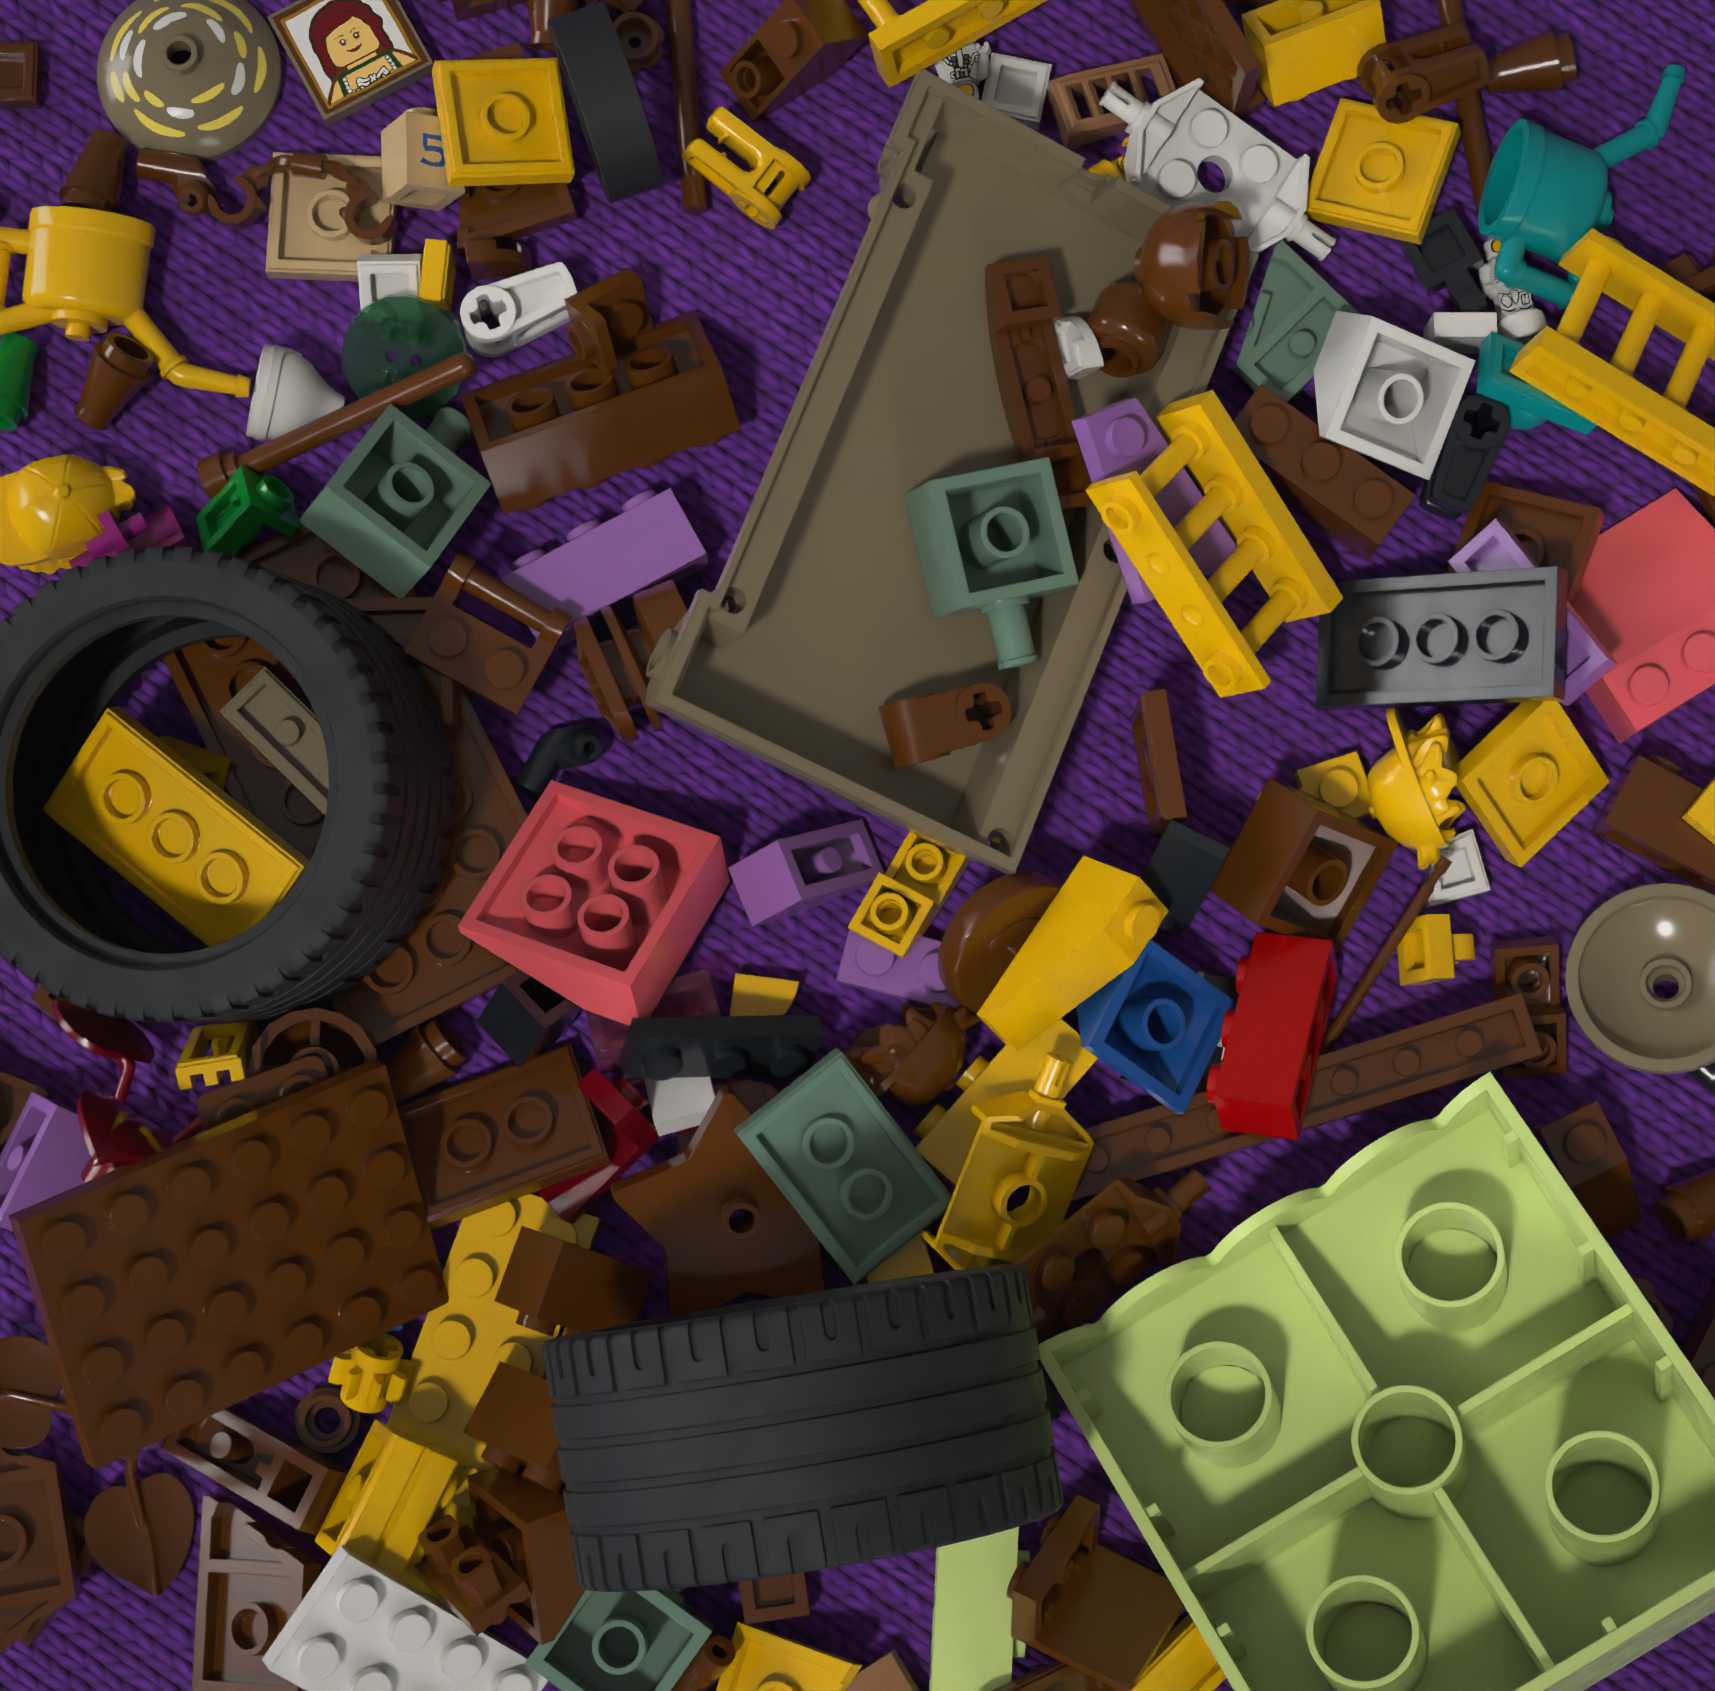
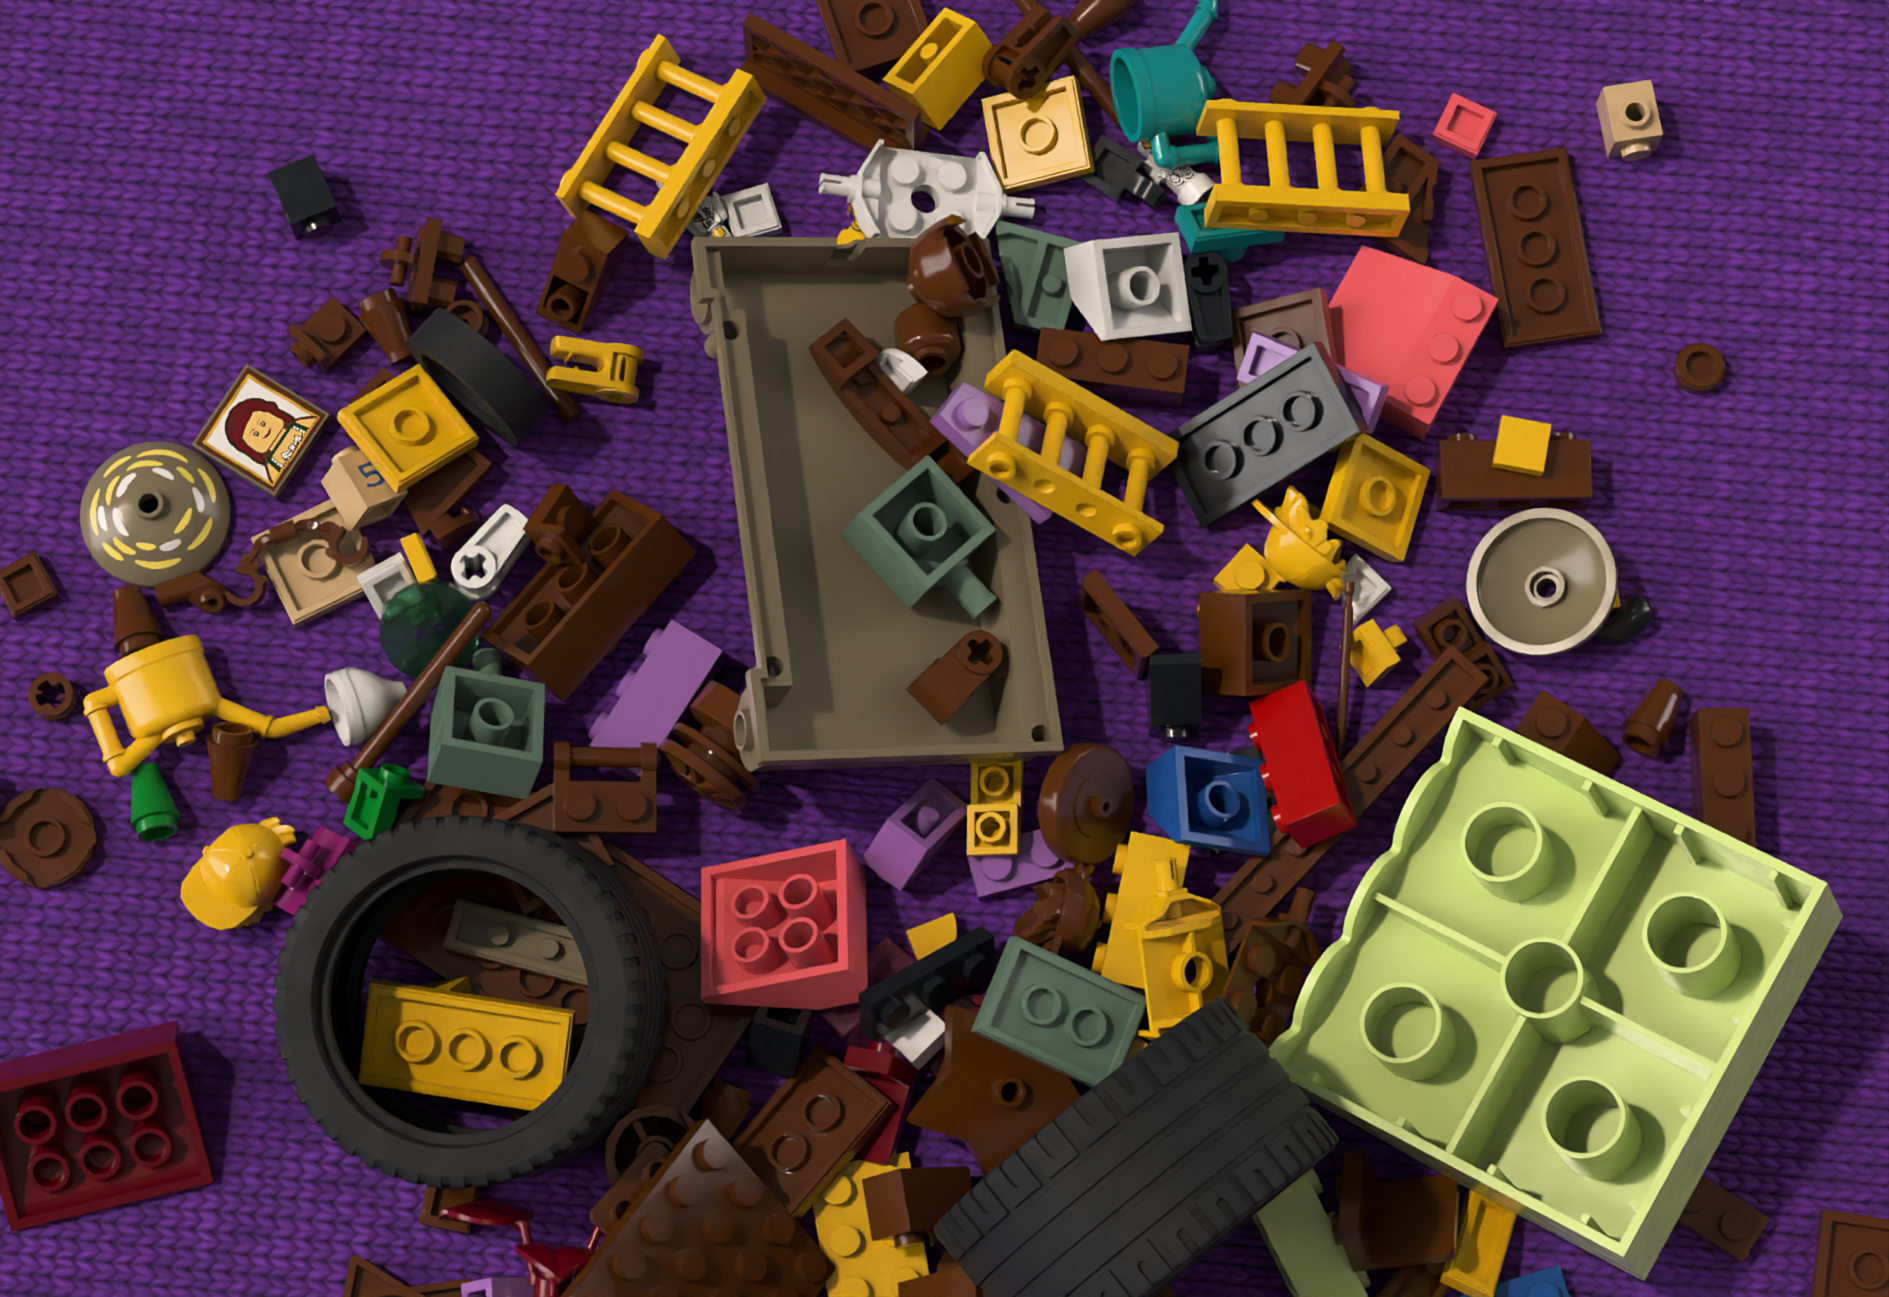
camera: 30 degrees left, 5 degrees down
(226, 1053) = (581, 1187): yellow tile -> none
(558, 751) = (693, 846): black arm -> none
(1075, 949) = (1134, 778): yellow slope -> none
(1086, 83) = (786, 198): medium nougat slope -> none
(1460, 330) = (1155, 216): white tile -> none

